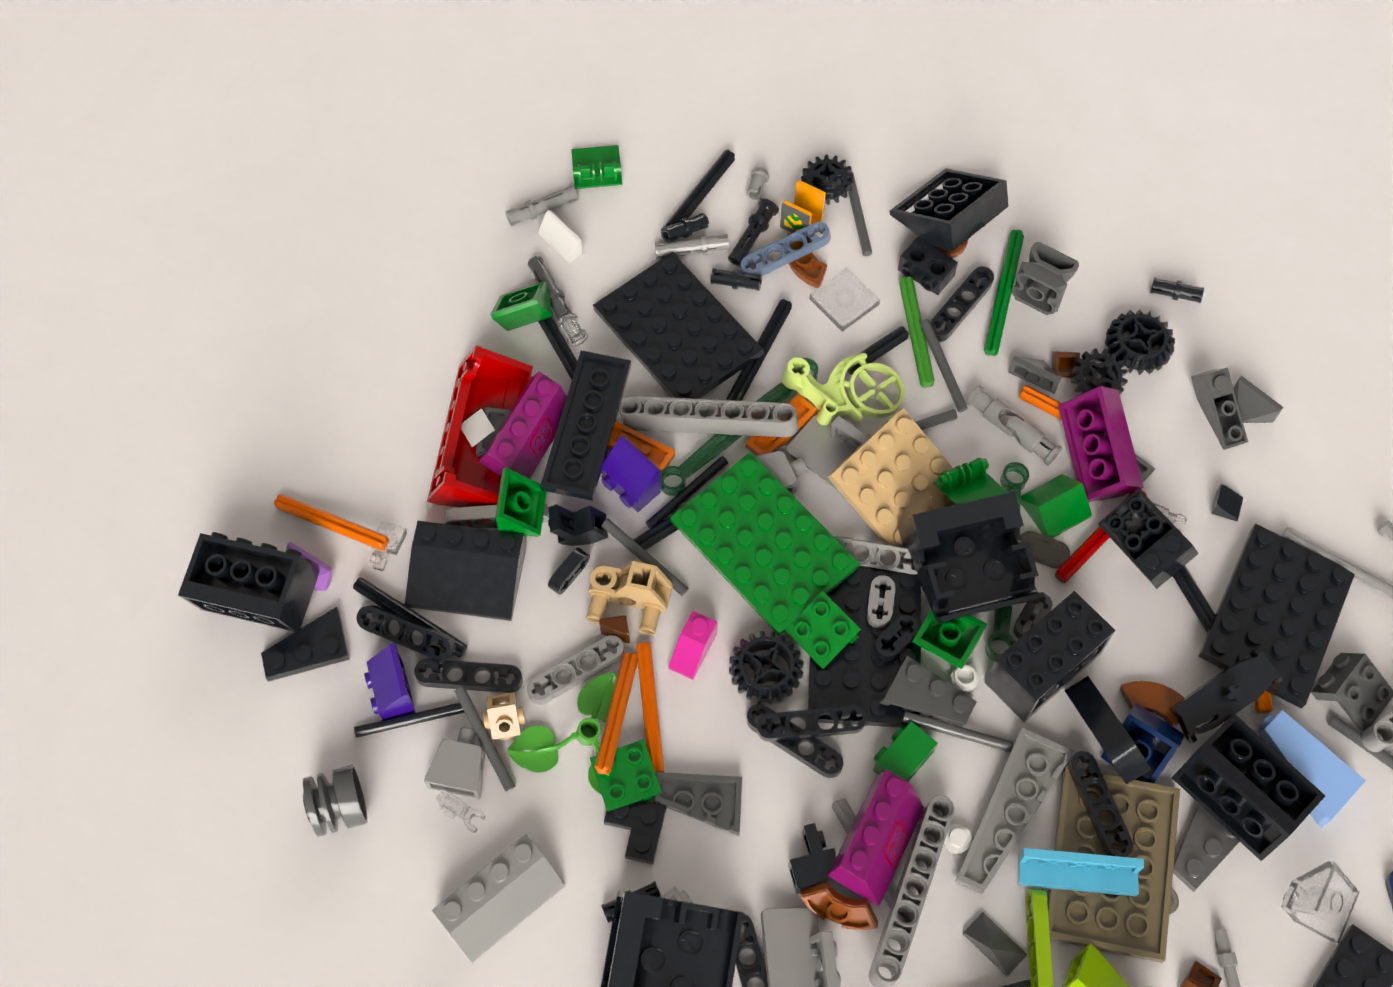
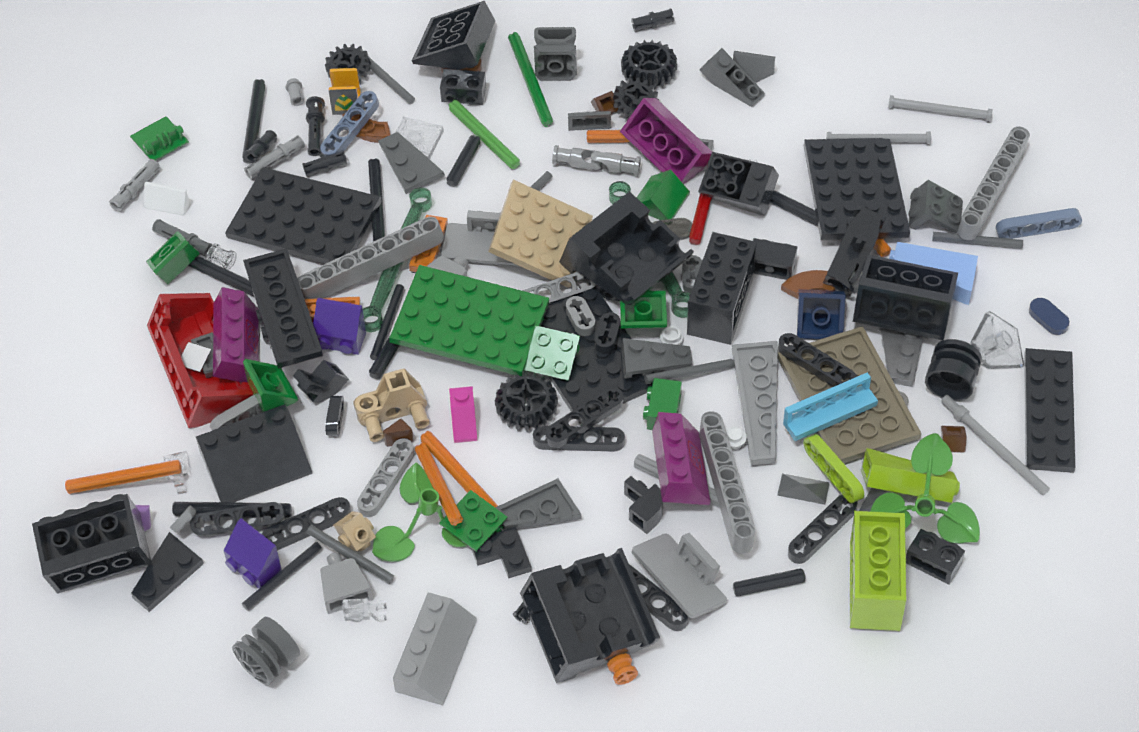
camera: 30 degrees left, 10 degrees down
(354, 603) = (183, 519): none -> light grey tile
(642, 554) = (377, 375): dark grey bar -> none
(818, 324) = (409, 163): none -> dark grey wing
(829, 904) = (679, 523): dark orange tile -> none
(832, 398) = (458, 200): yellowish green piece -> none
(943, 365) = (519, 146): dark grey bar -> none
(963, 305) = (504, 101): black beam -> none
(968, 482) = (589, 206): green hinge -> none
(1108, 730) = (792, 311): black beam -> none
(1133, 649) = (775, 259): none -> black brick
(1227, 503) = (776, 138): black slope -> none
(1248, 907) = (953, 369): none -> black wheel

